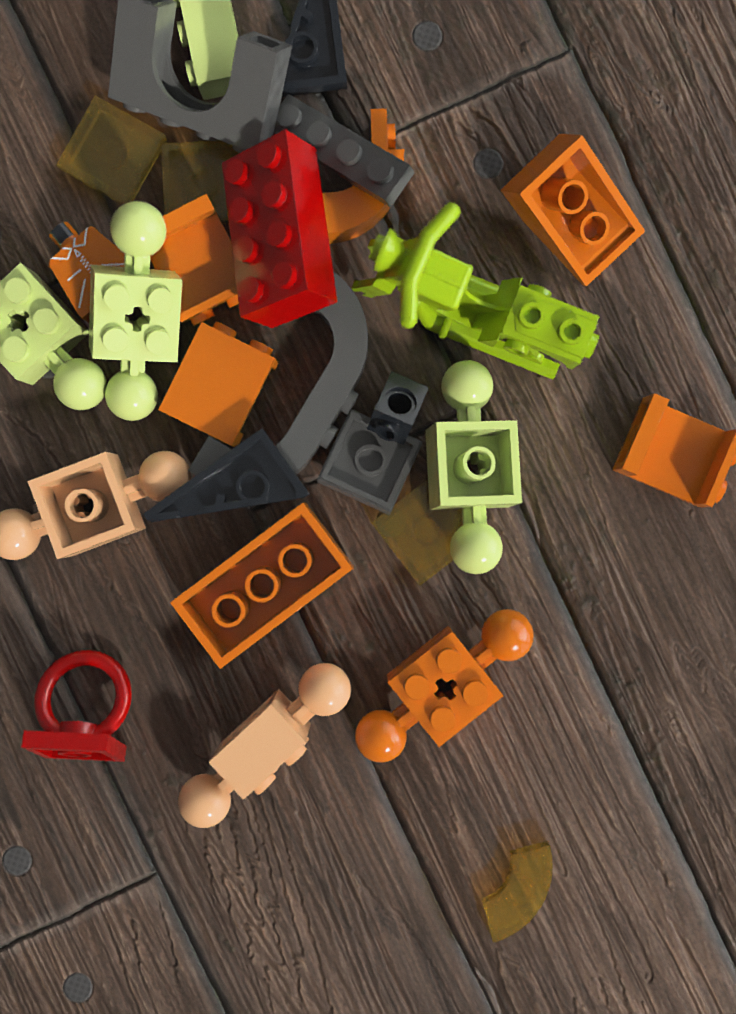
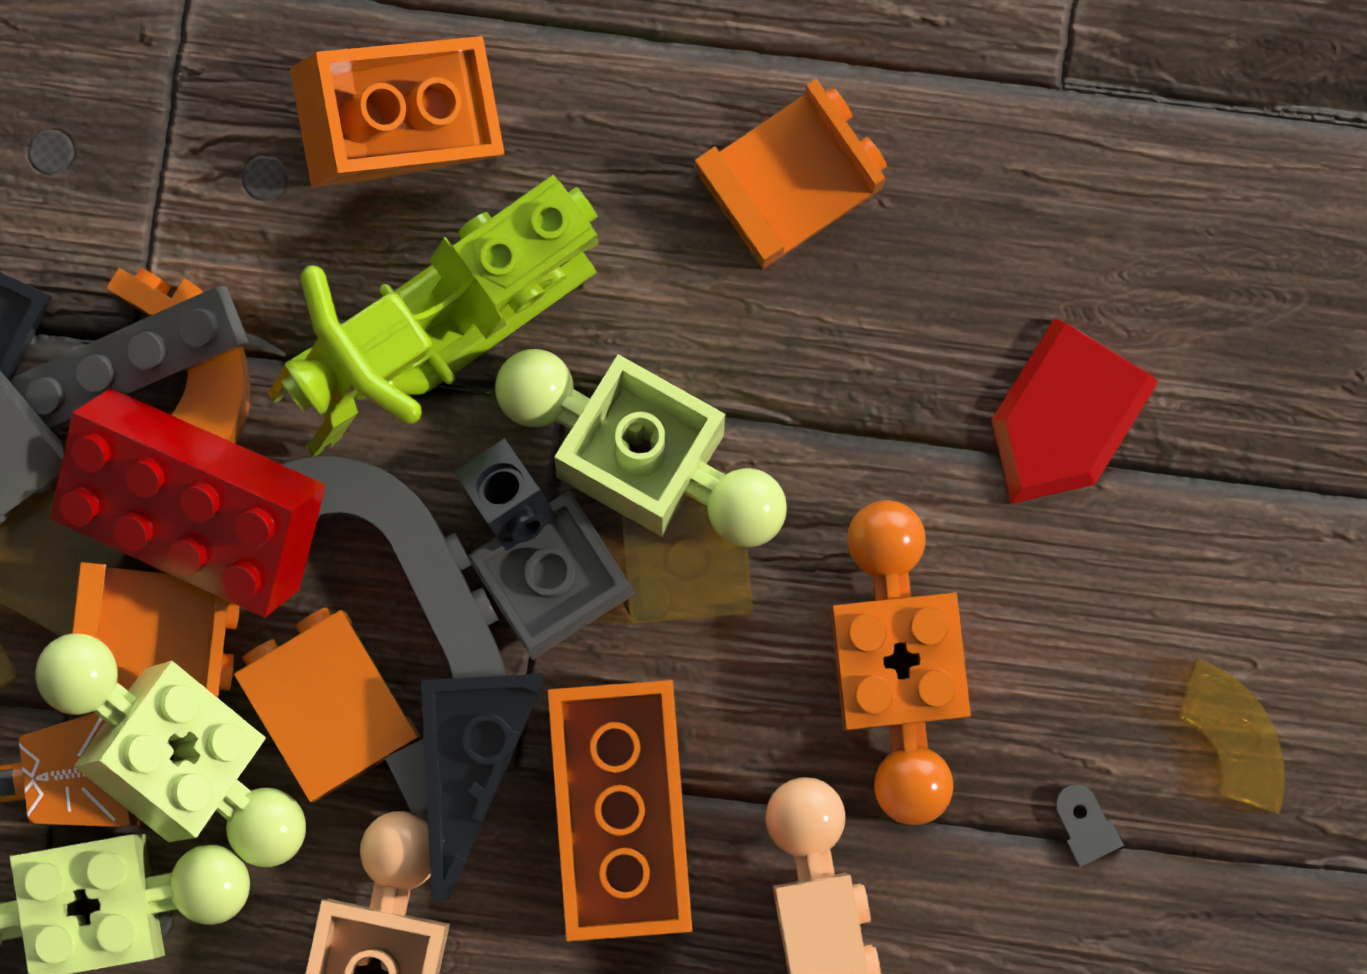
camera: 55 degrees left, 5 degrees down
(415, 844) = (1090, 835): none -> dark grey piece
(639, 687) = (1066, 414): none -> red tile

